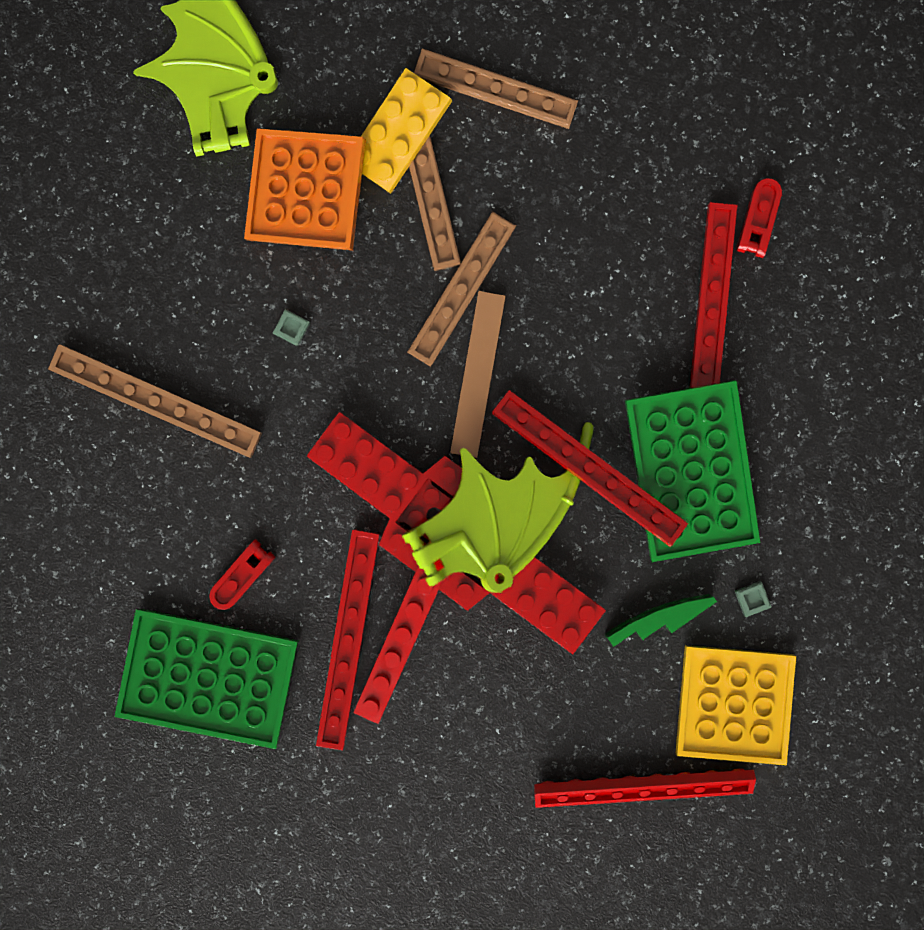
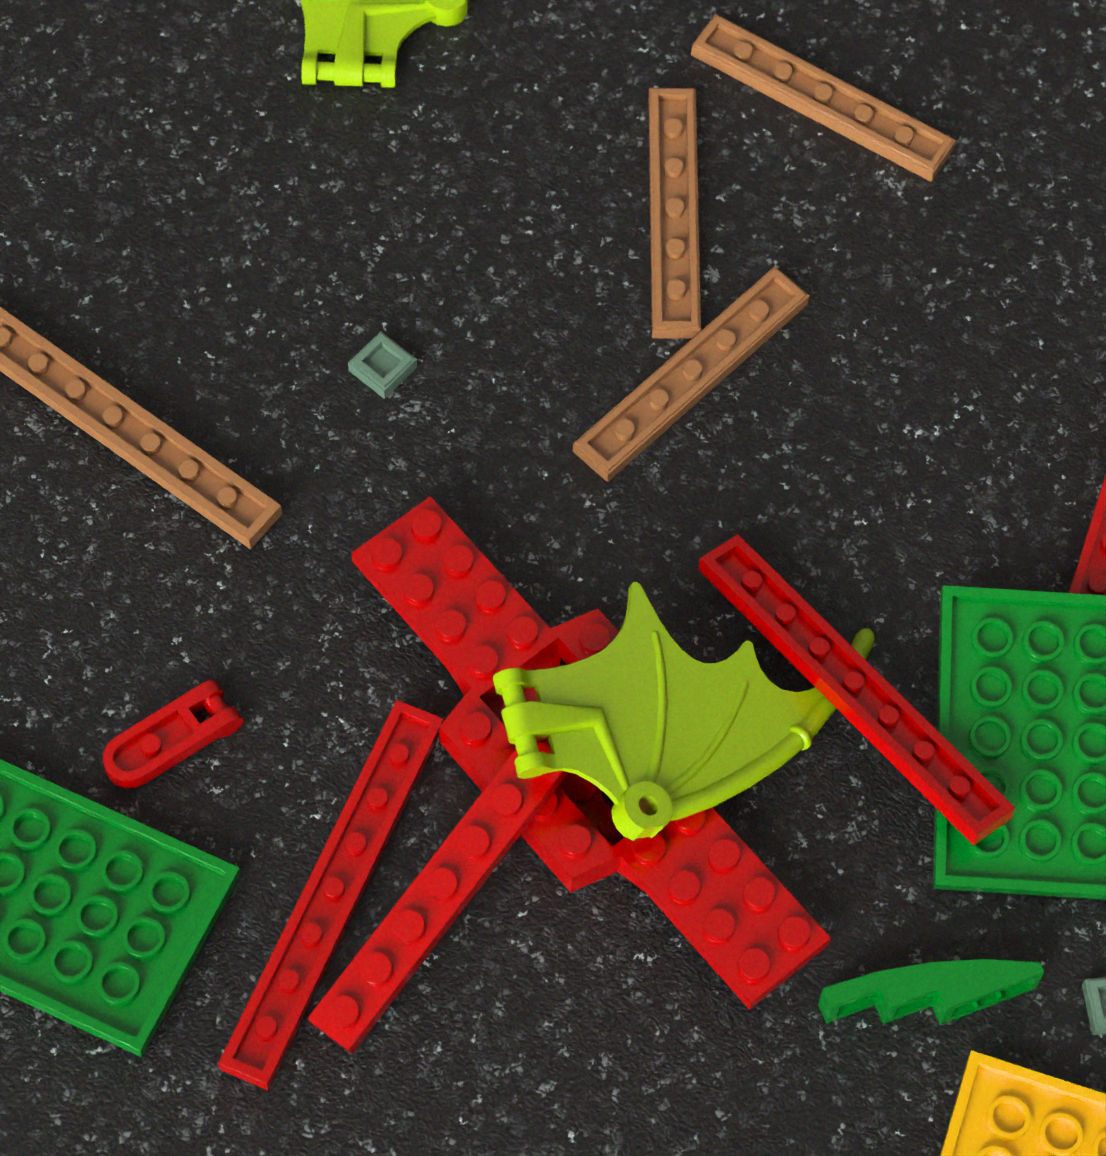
camera: 15 degrees right, 25 degrees down
(305, 189) = (468, 160): orange plate -> none
(401, 128) = (645, 116): yellow plate -> none
(478, 373) = (692, 498): medium nougat tile -> none

